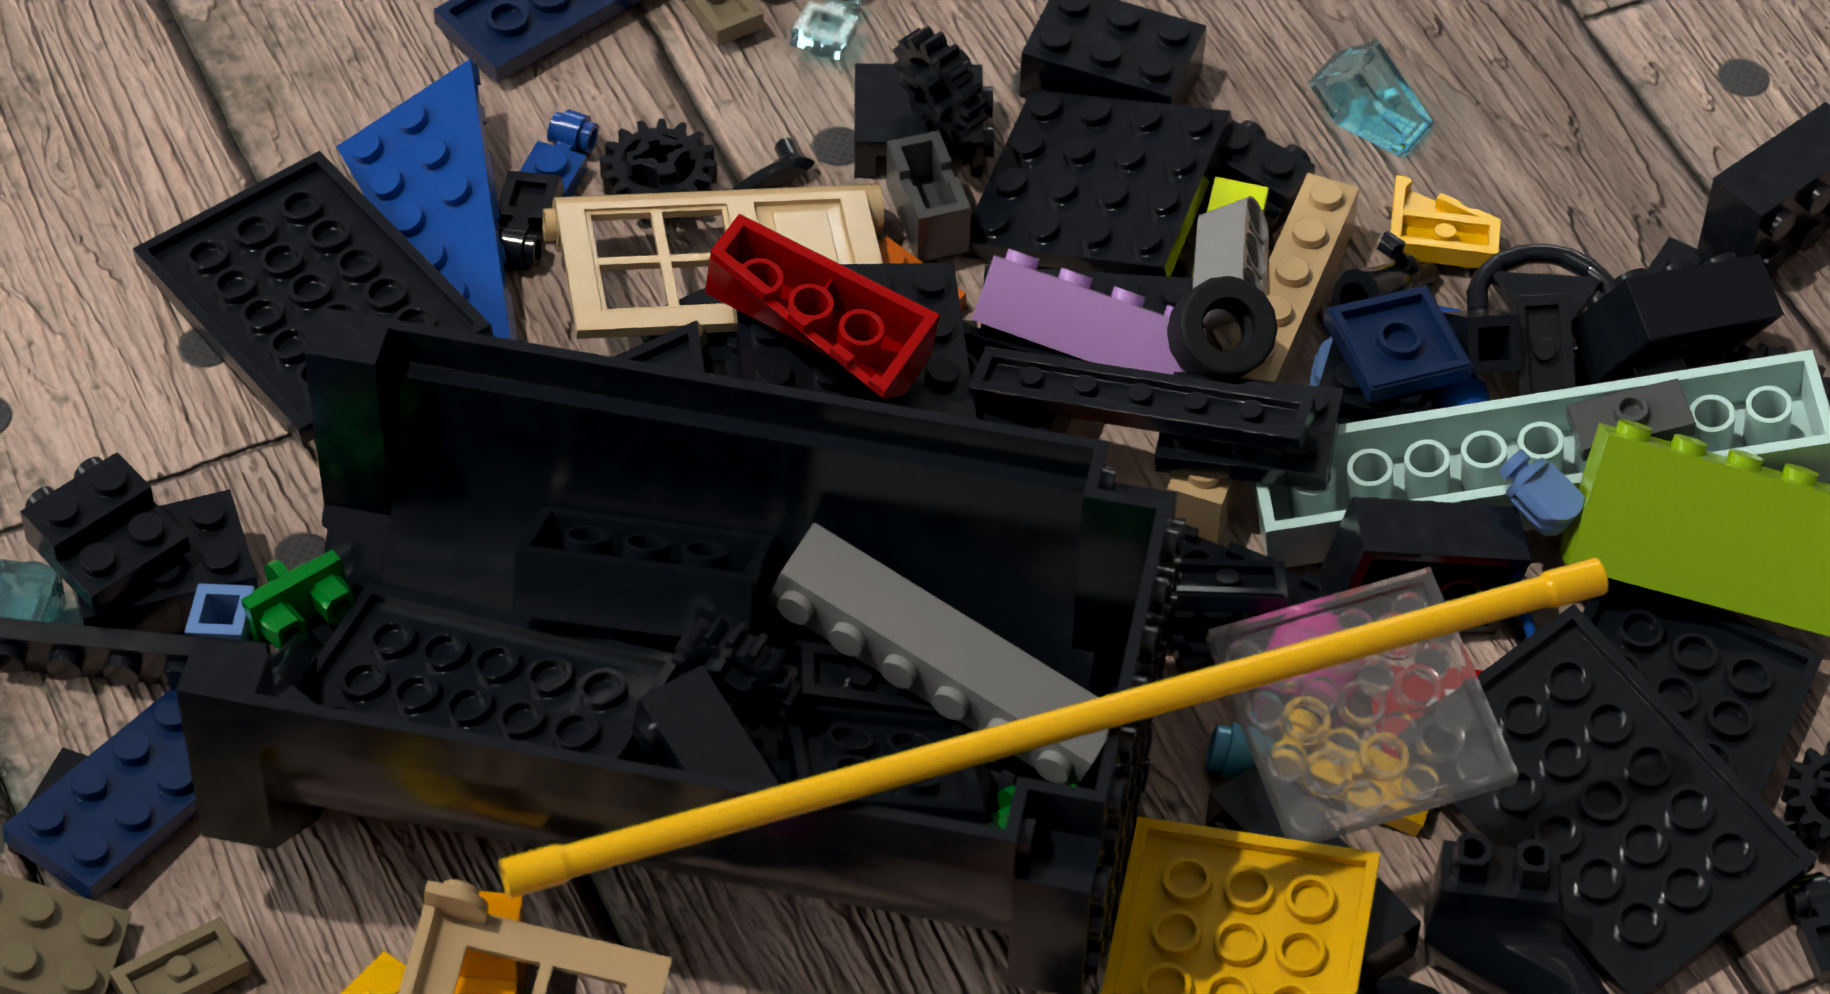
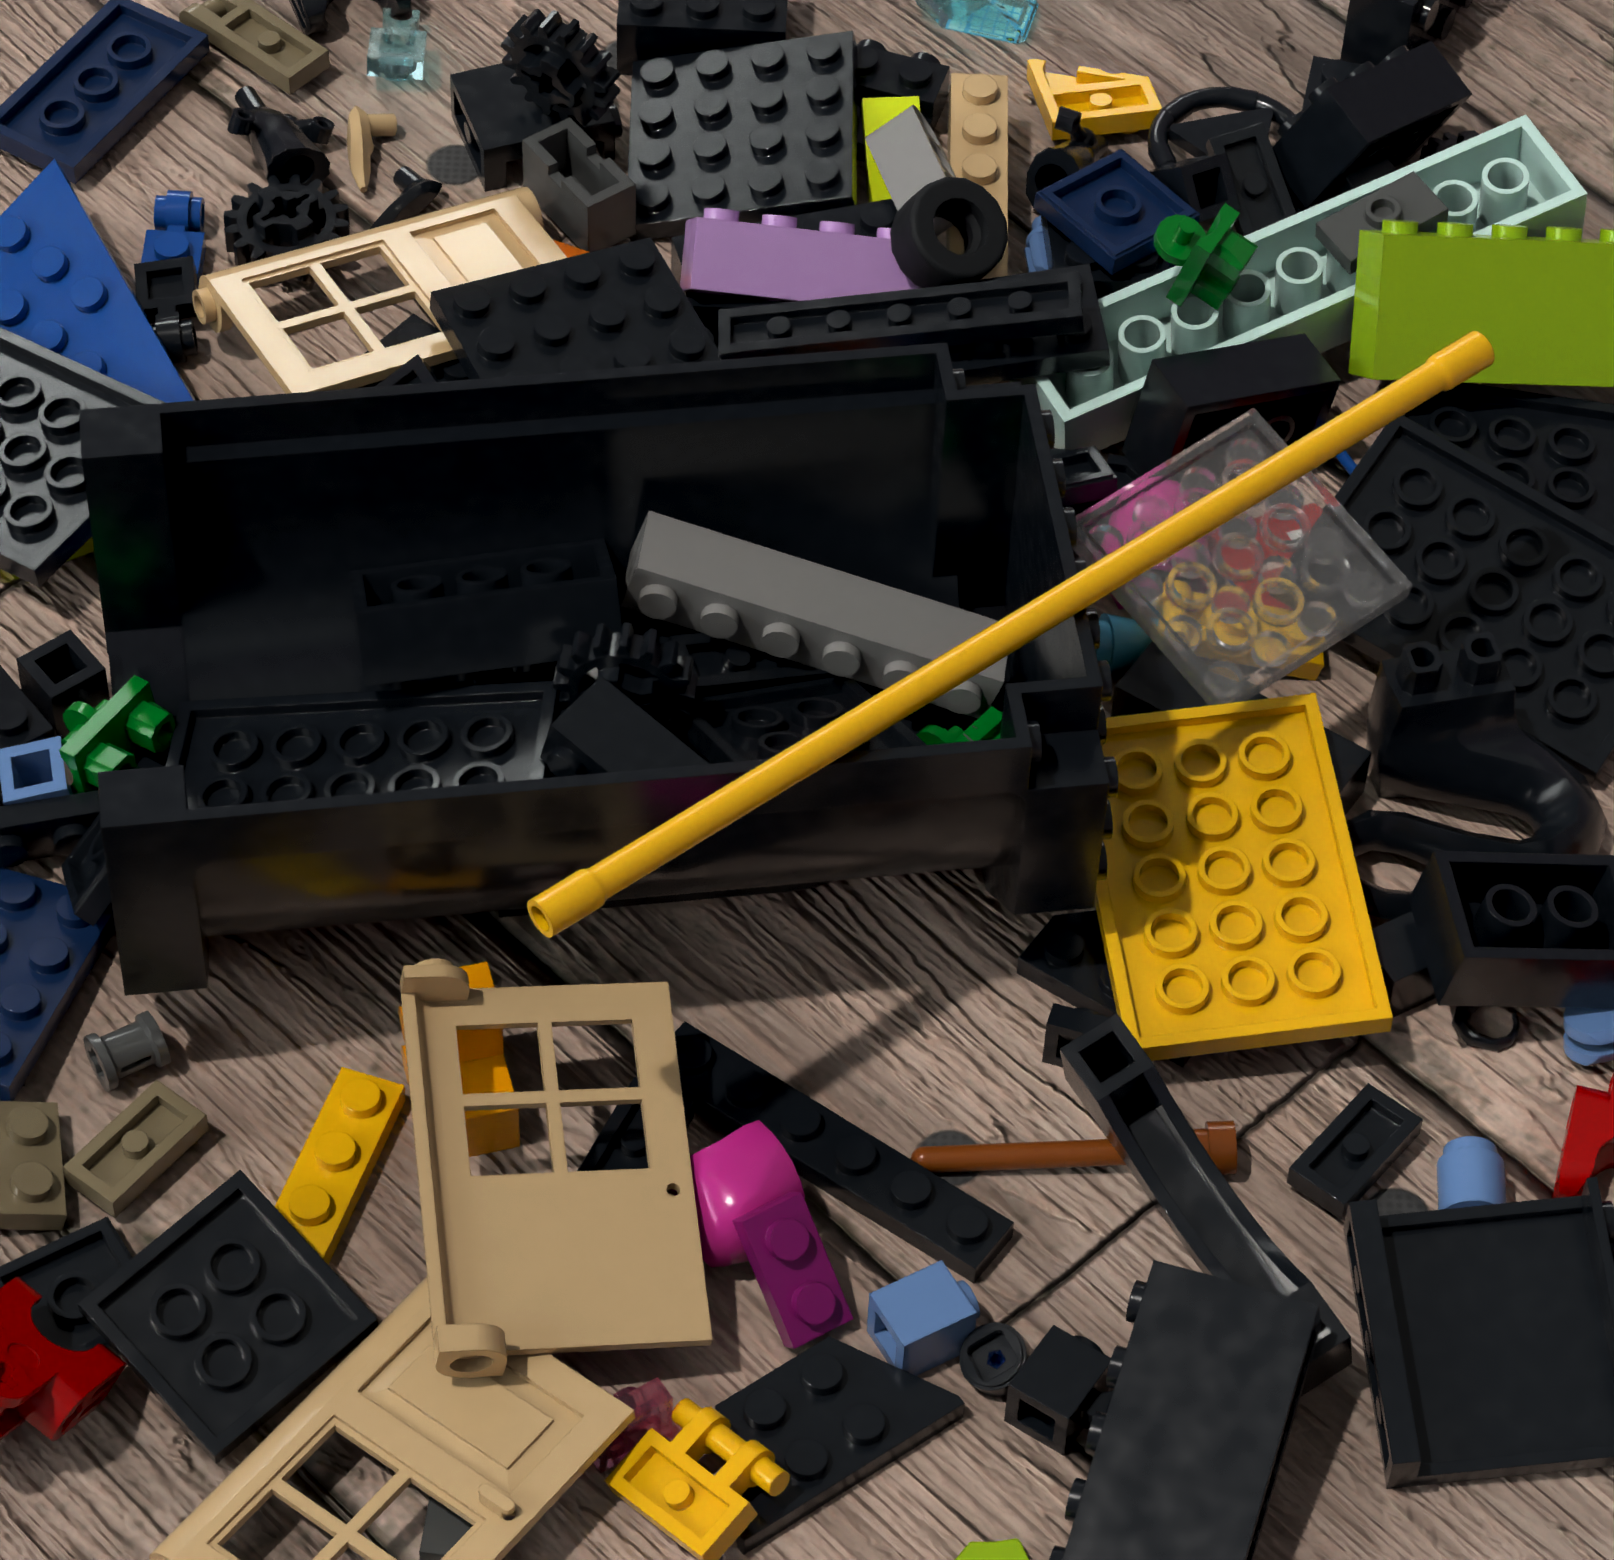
camera: 20 degrees left, 0 degrees up
(208, 882) = (126, 1050): none -> dark grey bush
(285, 531) = (59, 675): none -> black brick
(686, 84) = (280, 140): none -> black piece
(764, 92) = (359, 141): none -> tan bar
(823, 305) = (551, 300): red wedge -> none
(1444, 415) = (1208, 260): none -> green hips
(1542, 493) = (1327, 313): medium blue arm -> none

